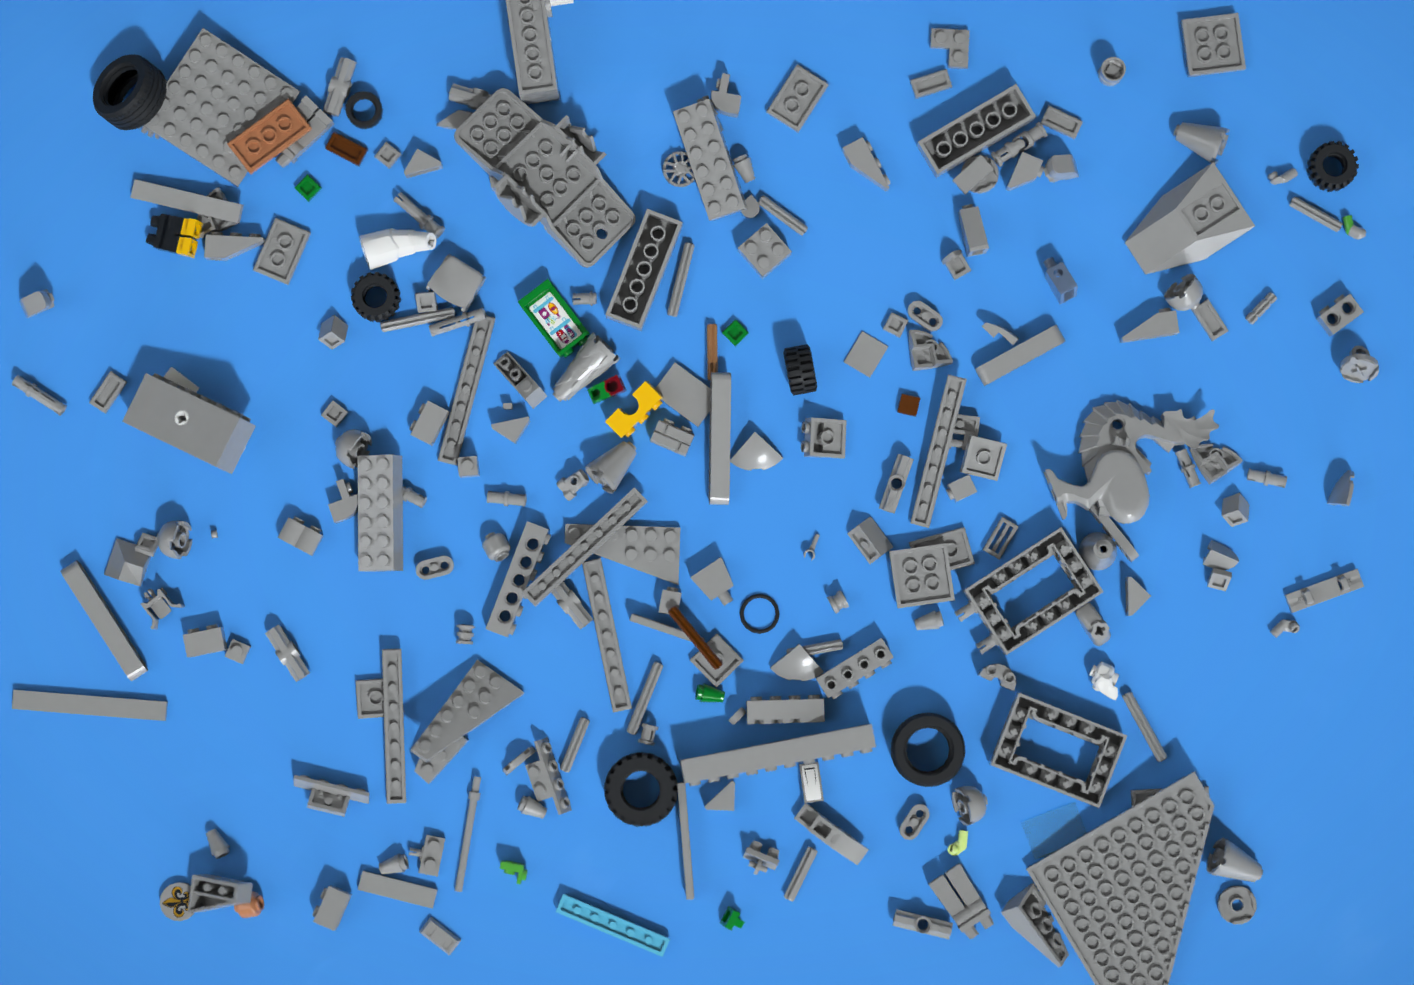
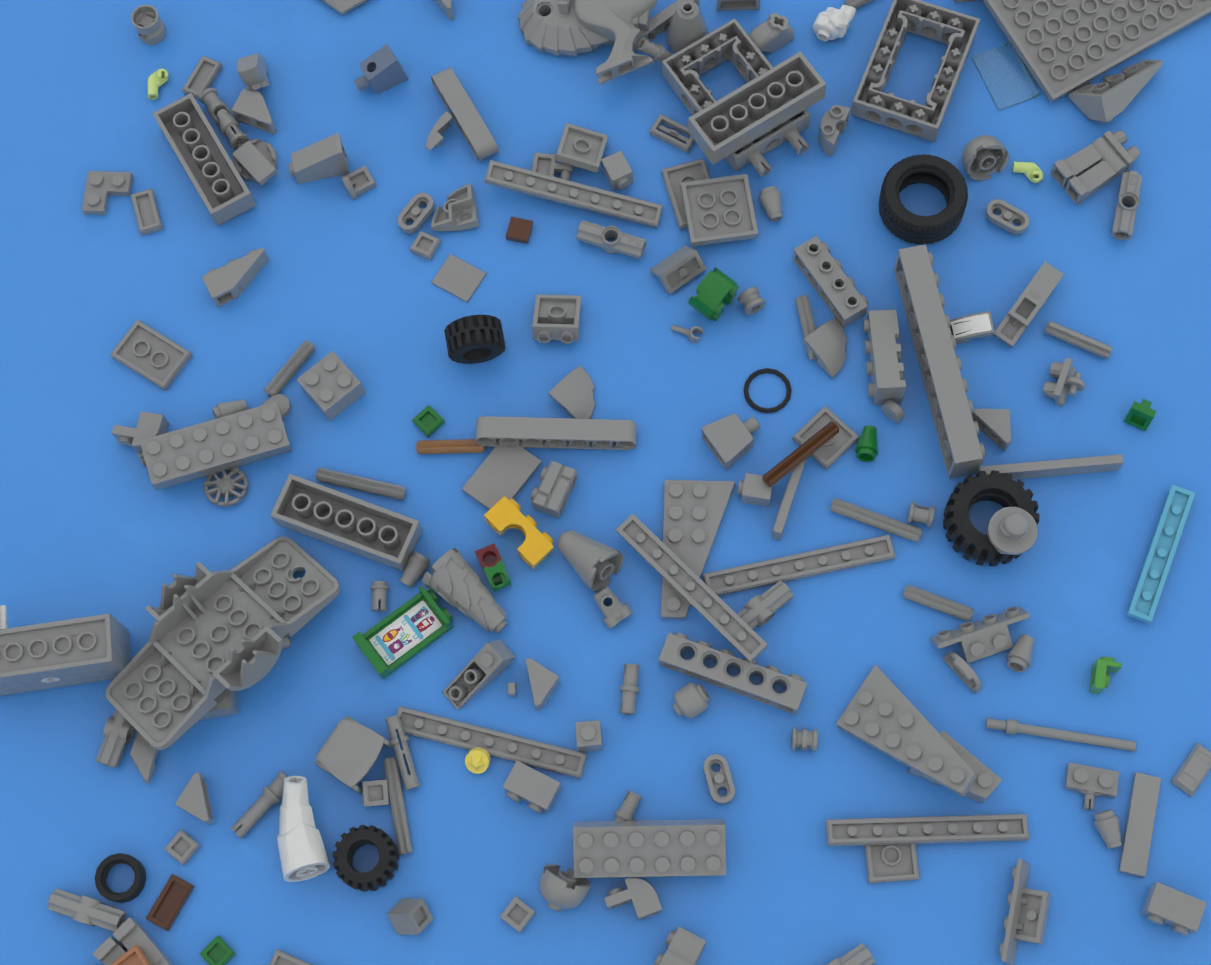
camera: 85 degrees left, 15 degrees down
(451, 380) = (477, 760): none -> light yellow tile
(607, 326) = (414, 568): none -> light grey cone
(622, 802) = (1012, 531): none -> light grey plate
(841, 569) = (713, 294): none -> green brick
(1006, 608) = (756, 107): none -> light grey brick
(1057, 80) = (155, 81): none -> yellowish green arm
(1074, 523) = (655, 51): none -> light grey pin

